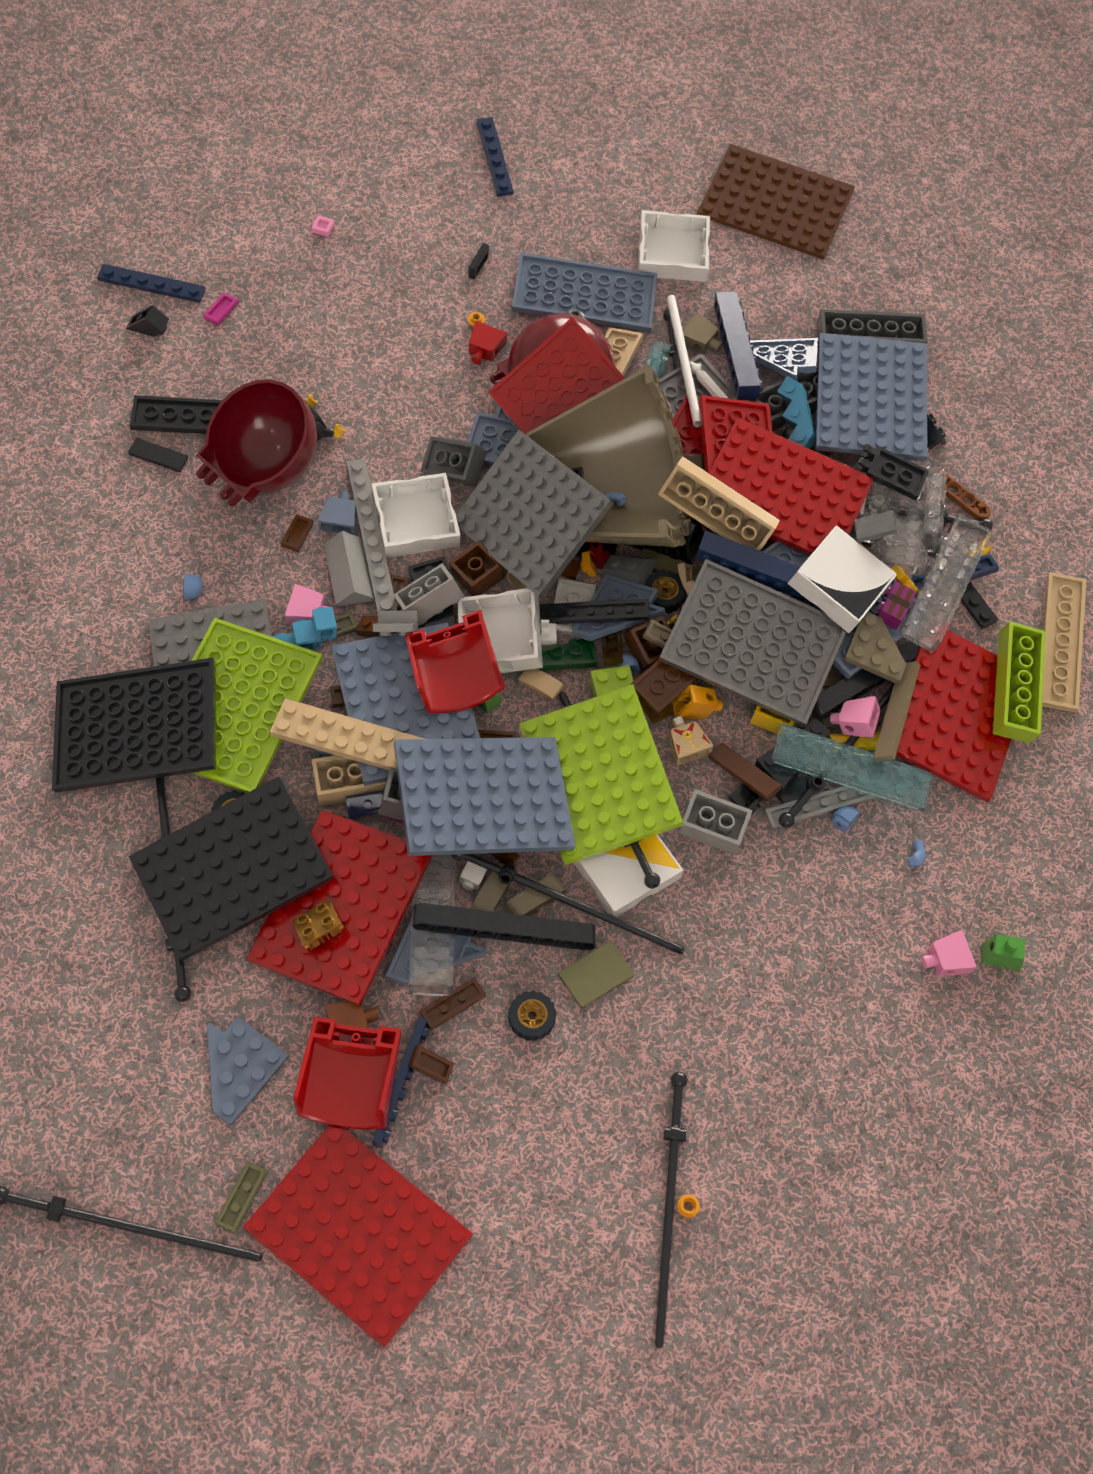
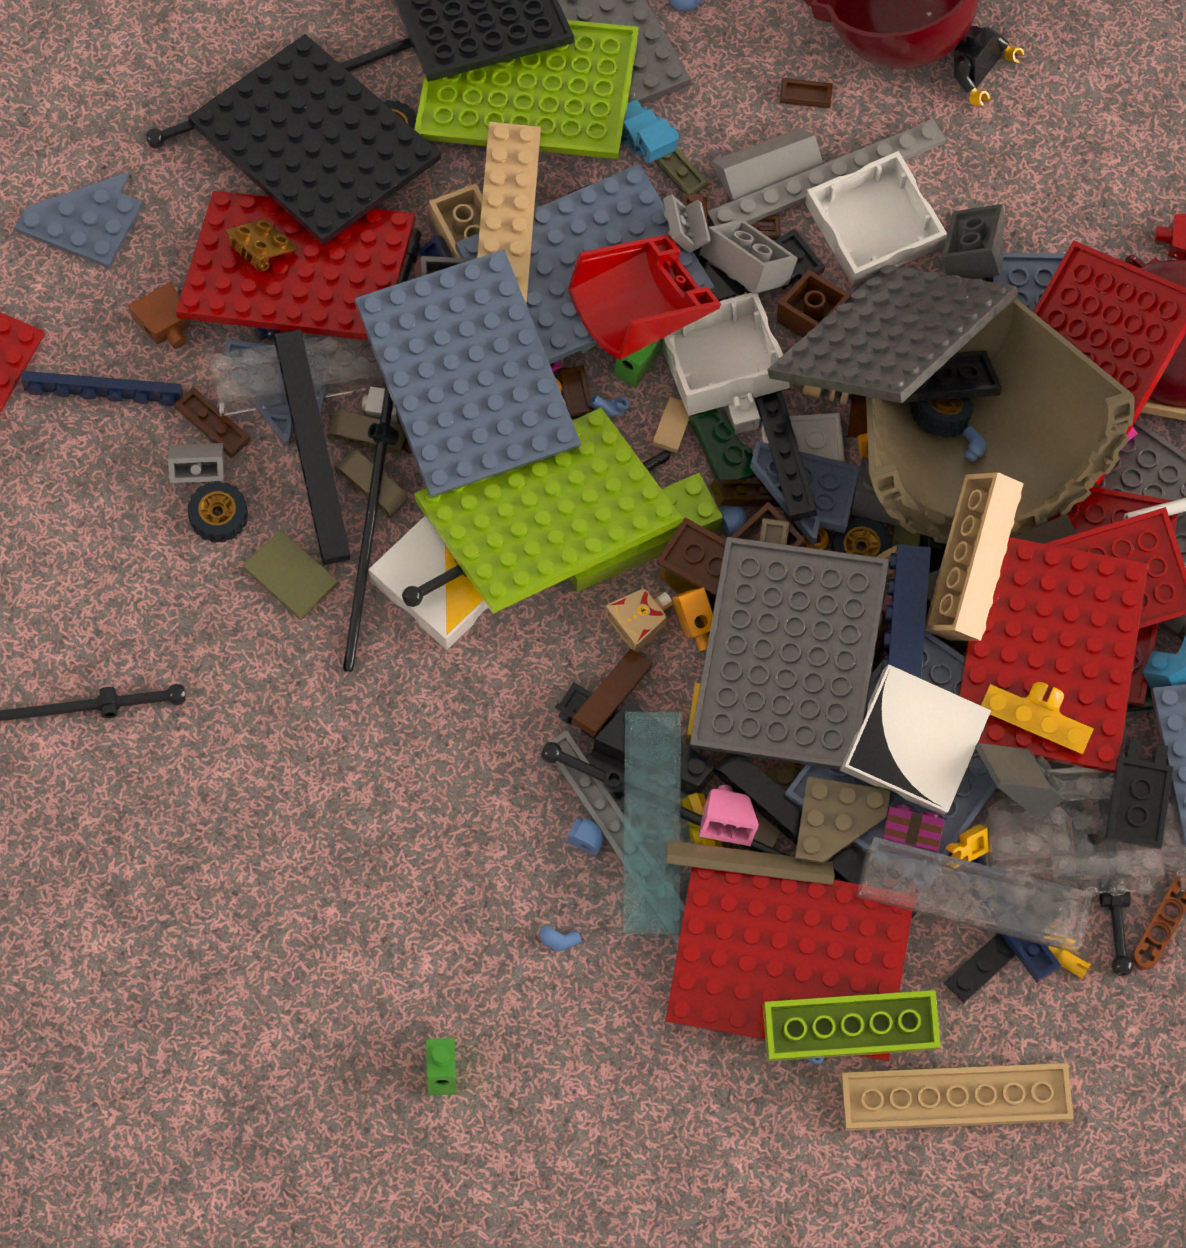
camera: 80 degrees right, 5 degrees up
(302, 603) = (696, 129): bright pink torso -> none
(338, 514) = (846, 130): sand blue torso -> none
(347, 1075) = (89, 317): red windscreen -> none
(430, 1064) = (129, 413): reddish brown tile -> none
(489, 1021) = (196, 463): none -> light grey brick
(515, 718) = (611, 407): none -> medium blue arm
(688, 1199) = (21, 727): light orange plate -> none
(715, 821) = (529, 669): light grey brick -> none
(834, 505) = (1038, 716): none -> yellow plate
(950, 955) = (421, 995): bright pink torso -> none

